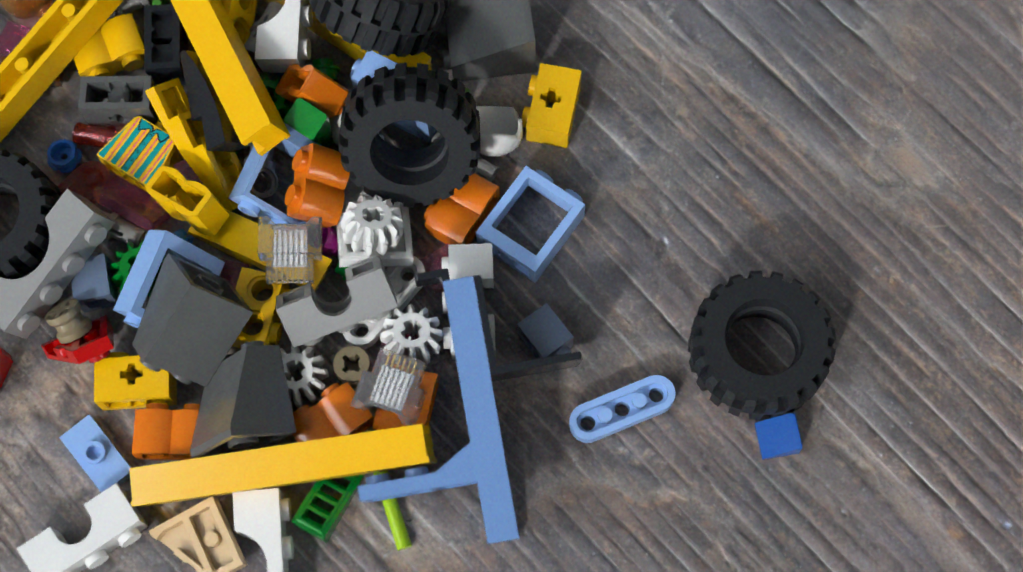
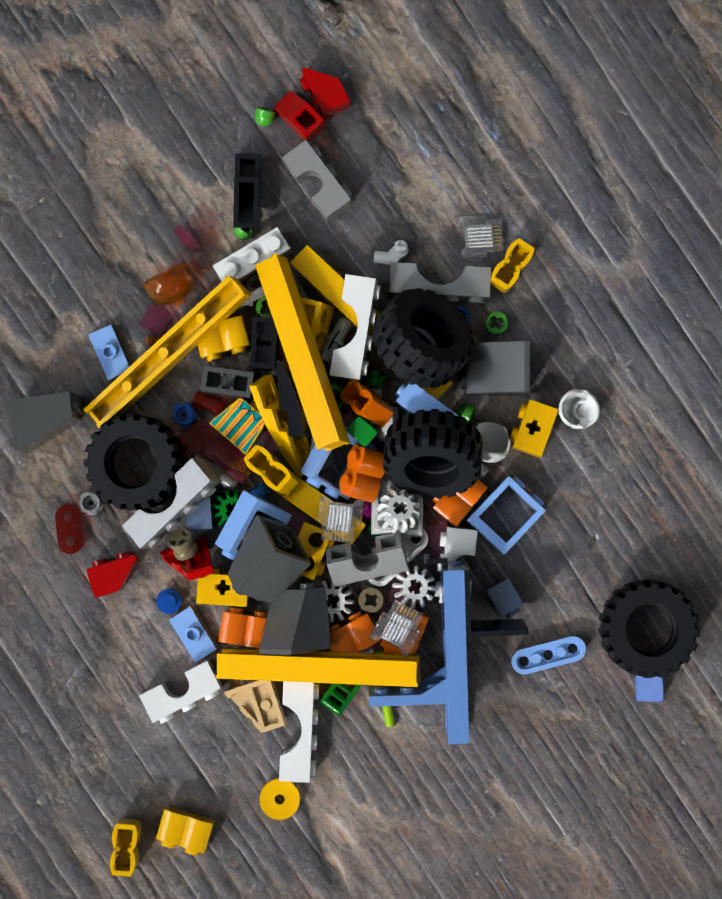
camera: 10 degrees right, 15 degrees up
(58, 411) = (168, 601): none -> blue plate
(610, 68) = (579, 409): none -> white hair

